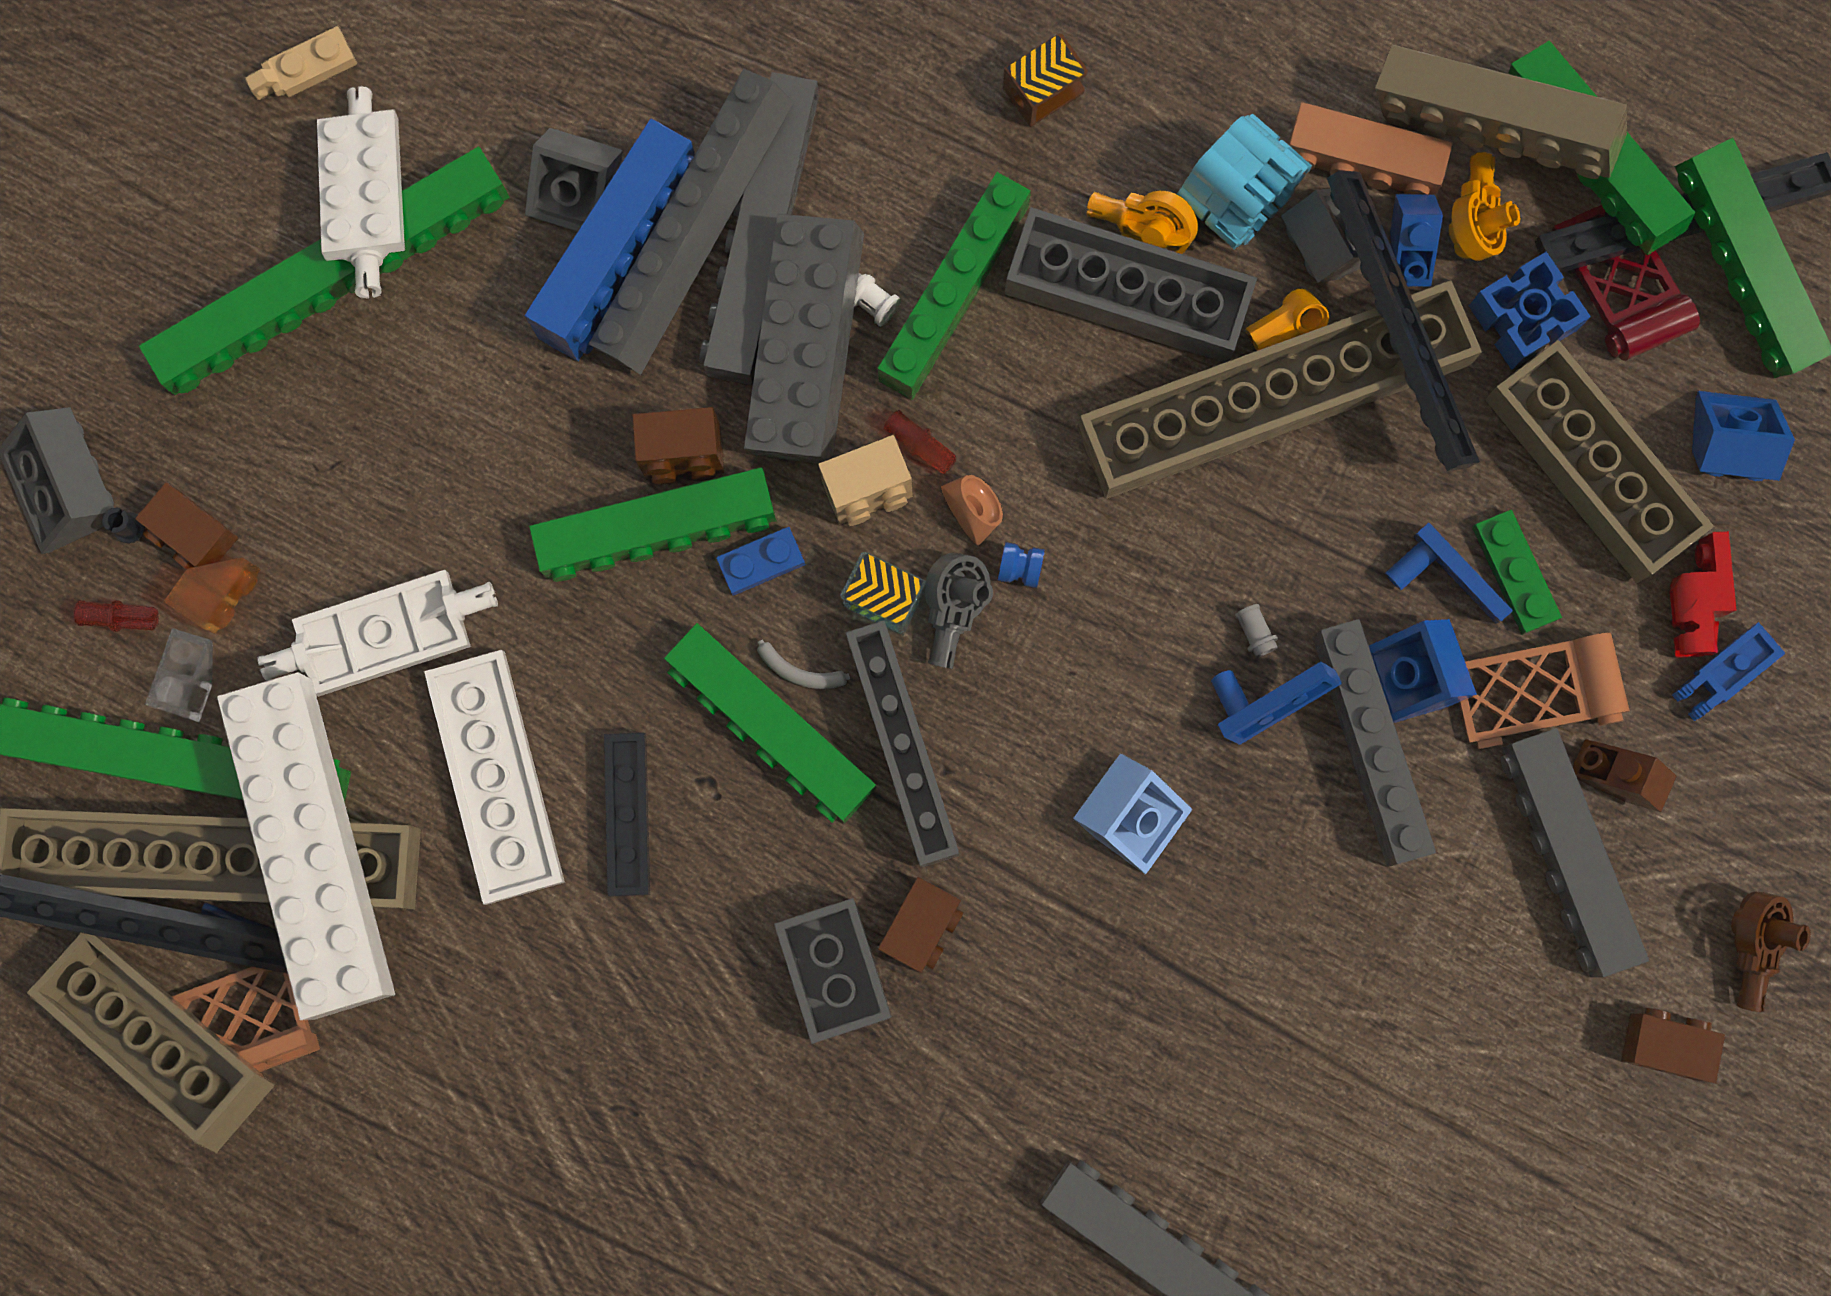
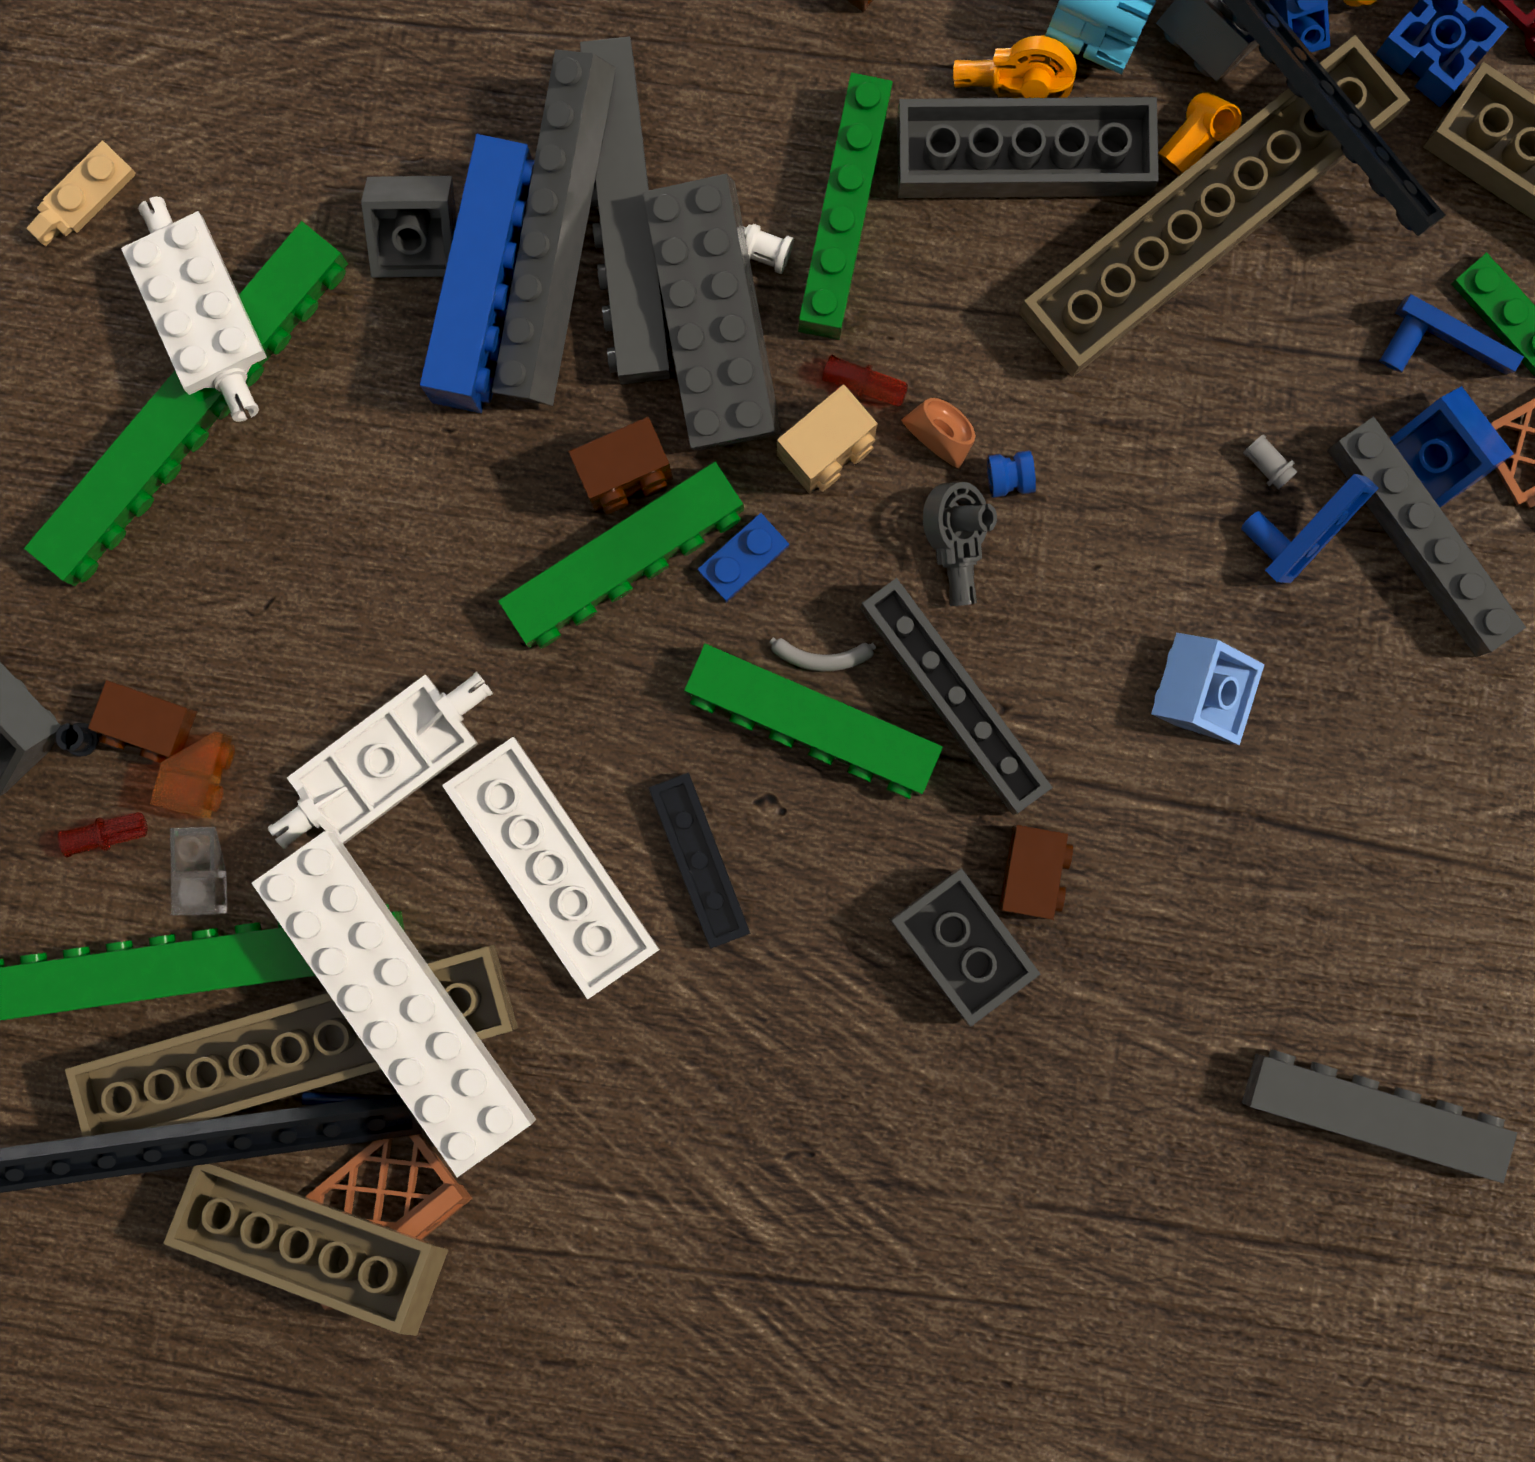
camera: 20 degrees left, 5 degrees up
(883, 593) = (882, 549): piece -> none

